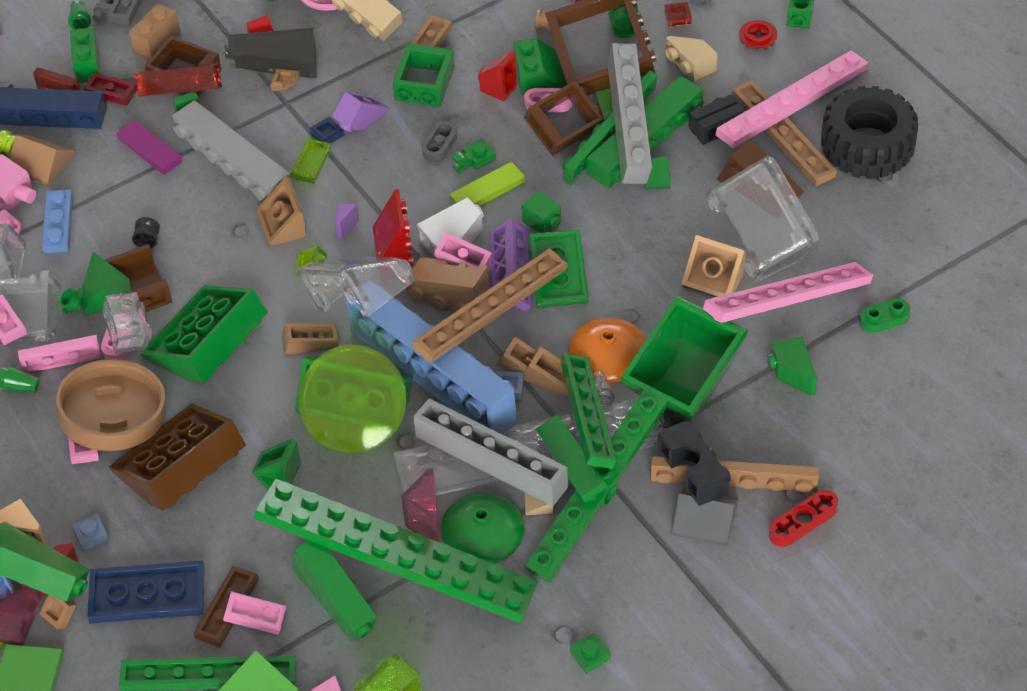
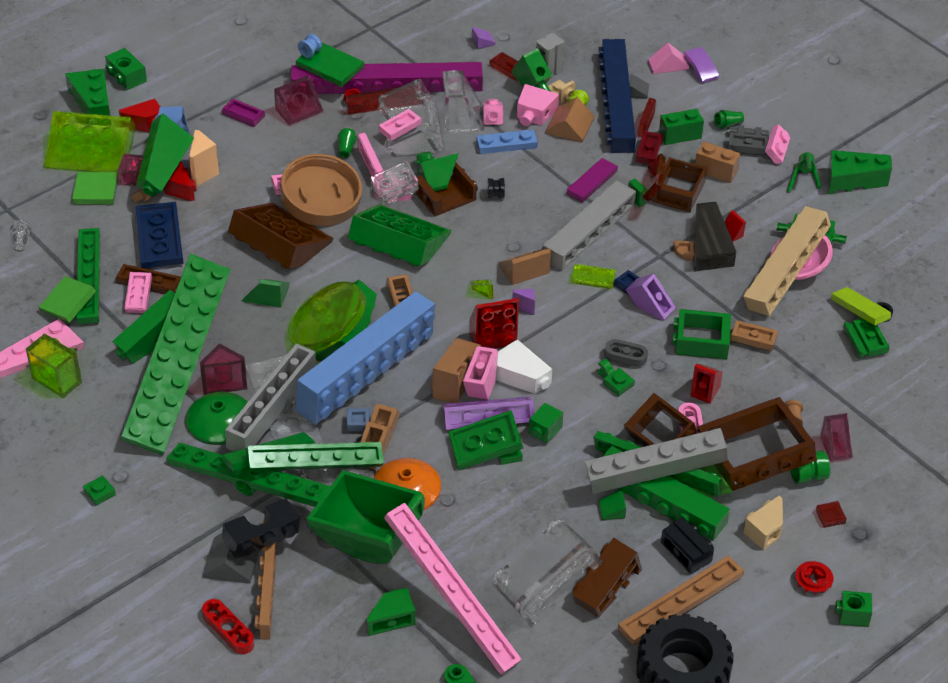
camera: 80 degrees right, 5 degrees down
(90, 532) = (213, 201): sand blue plate -> none
(359, 278) = (430, 292): clear windscreen -> none
(489, 306) = (415, 381): medium nougat tile -> none
(490, 185) = (580, 391): lime tile -> none
(537, 65) = (725, 401): green slope -> none
(714, 267) = (497, 548): light nougat slope -> none
(791, 99) = (724, 603): bright pink plate -> none

